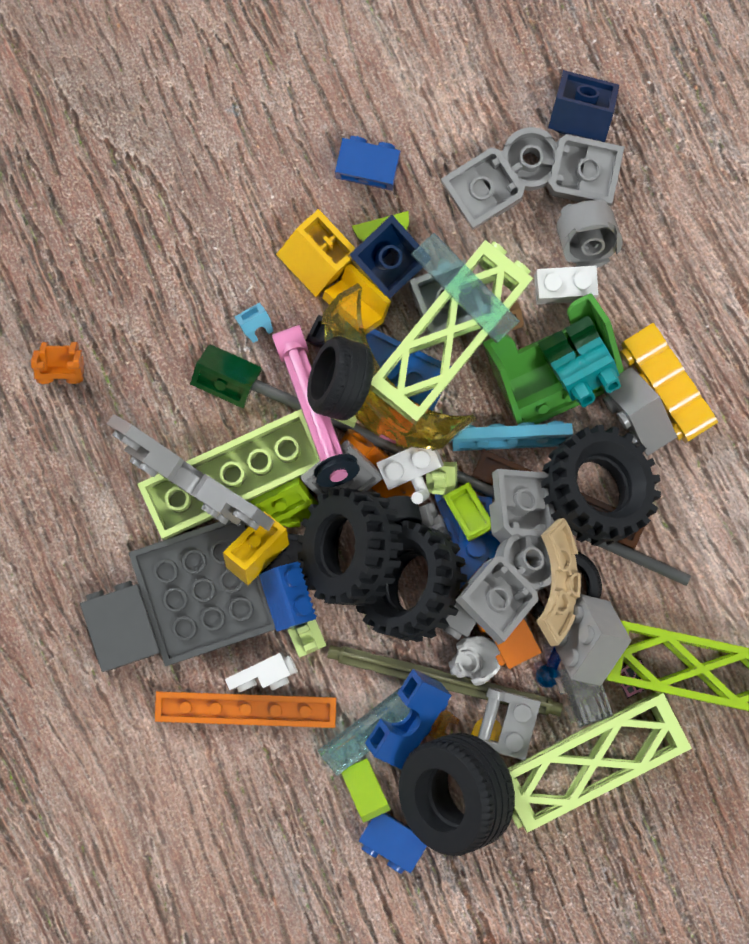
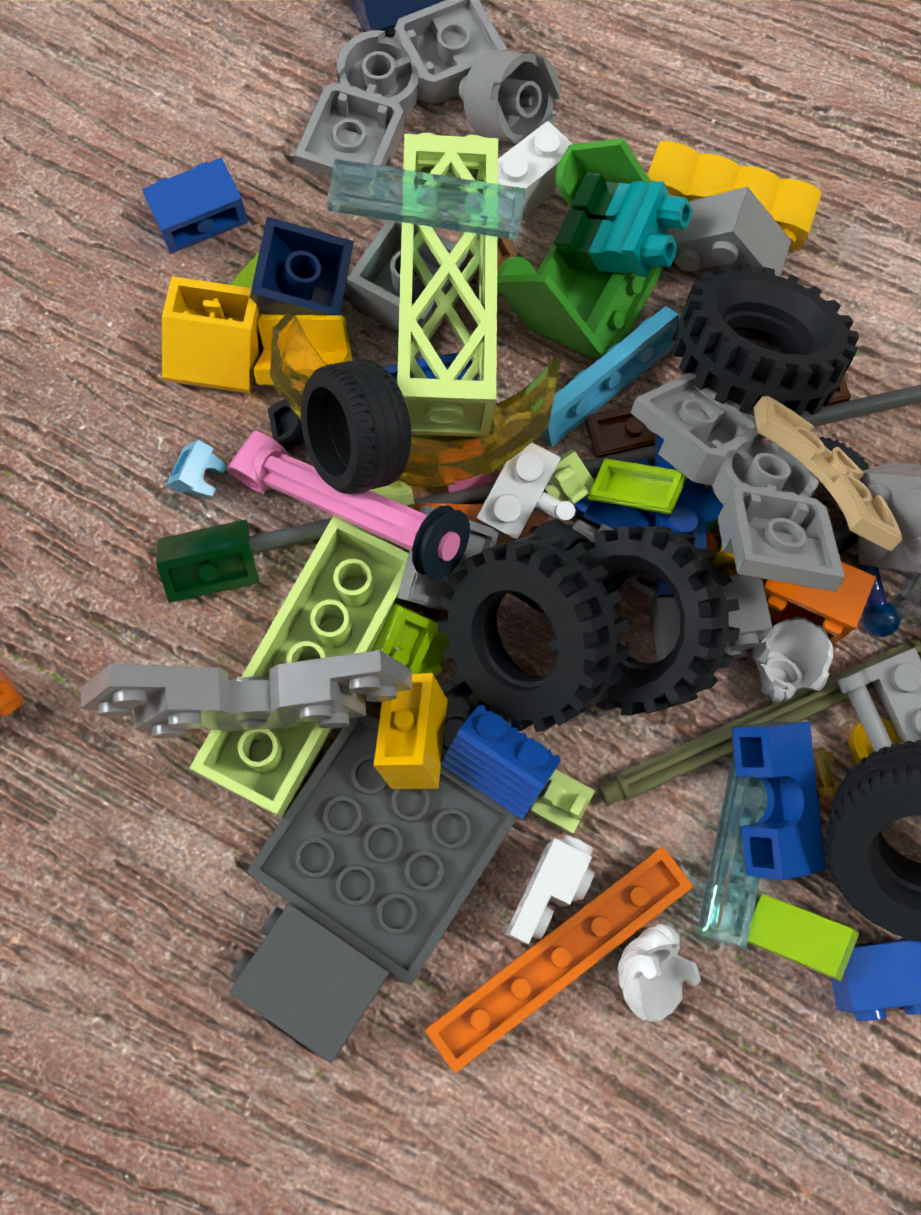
camera: 45 degrees left, 10 degrees down
(283, 752) = (654, 973): none -> white hair

